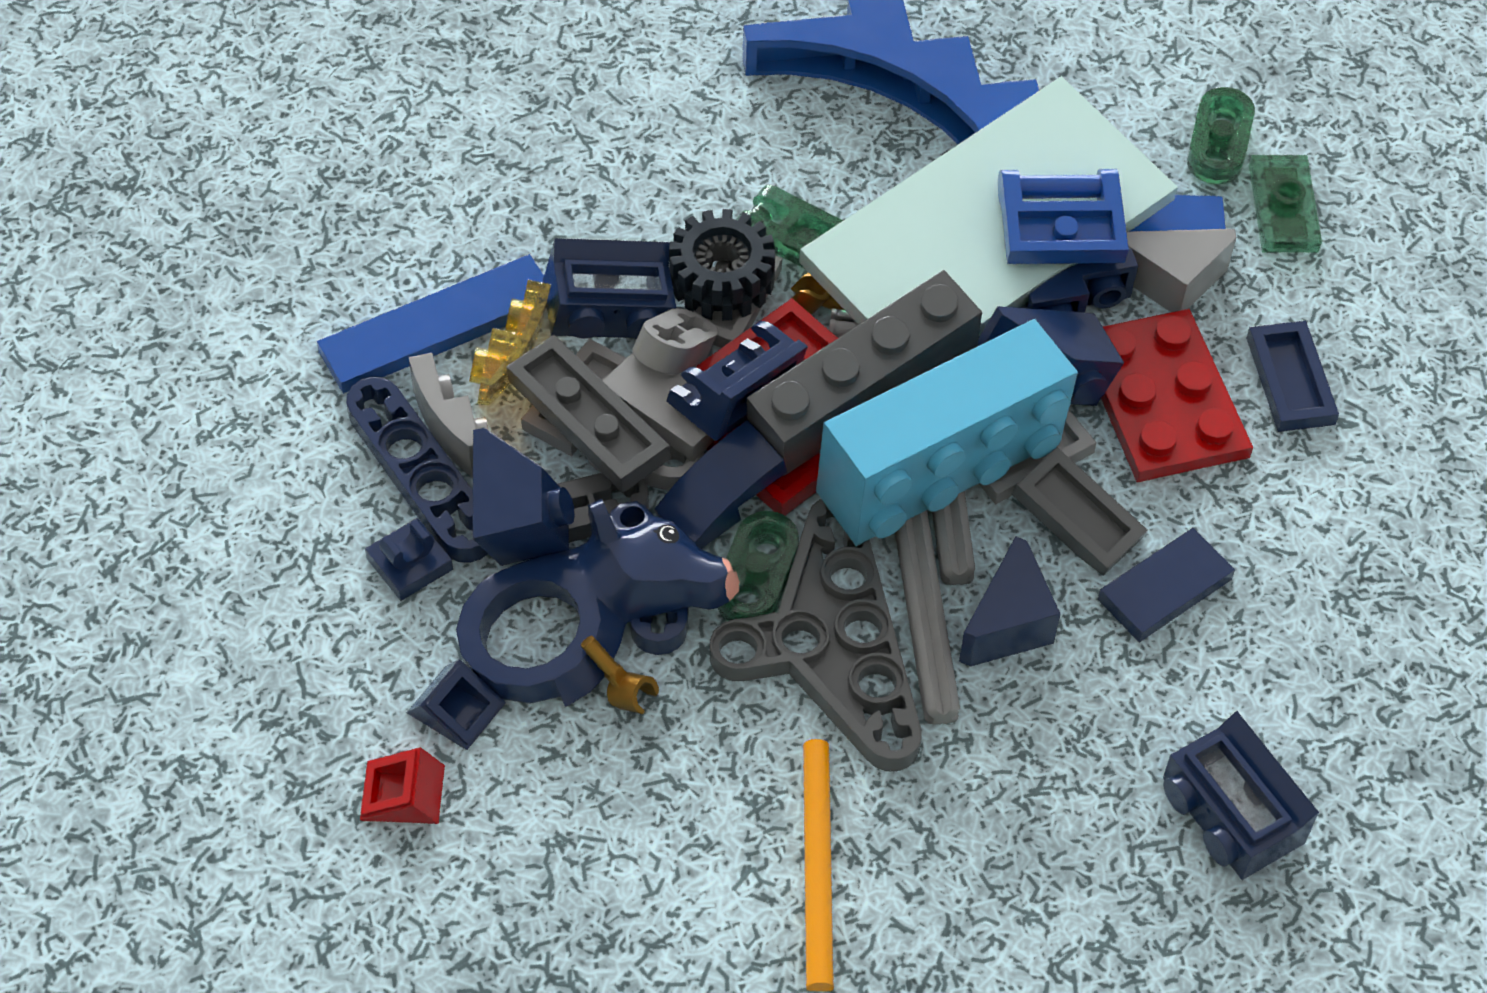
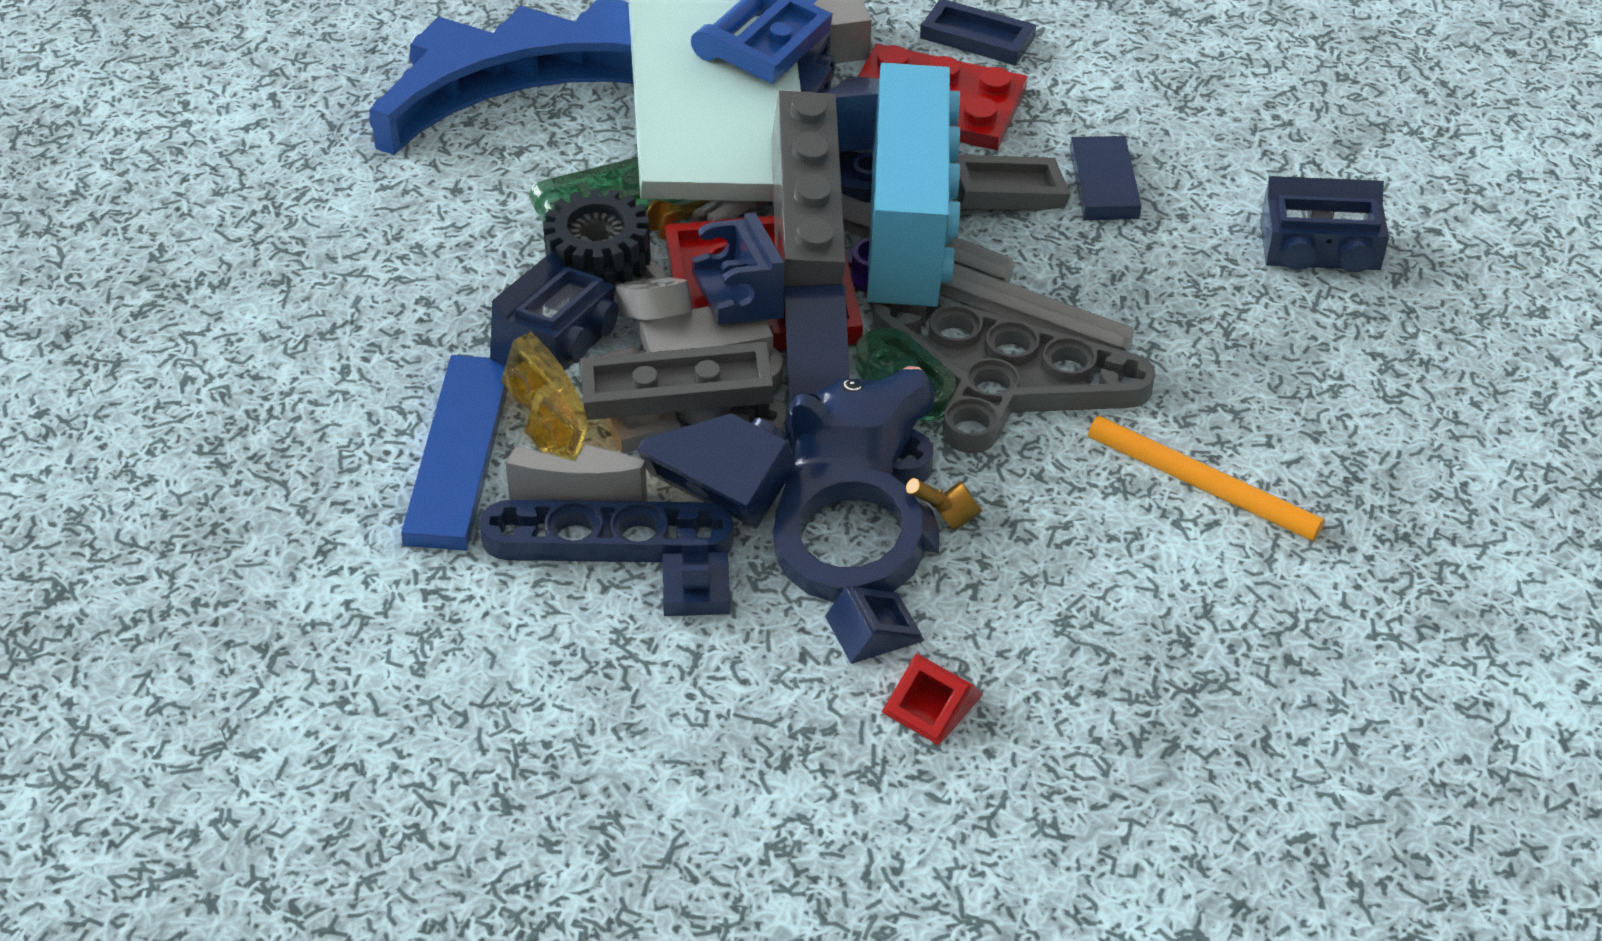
camera: 55 degrees left, 10 degrees down
(1013, 612) = (1064, 251): dark blue slope -> none

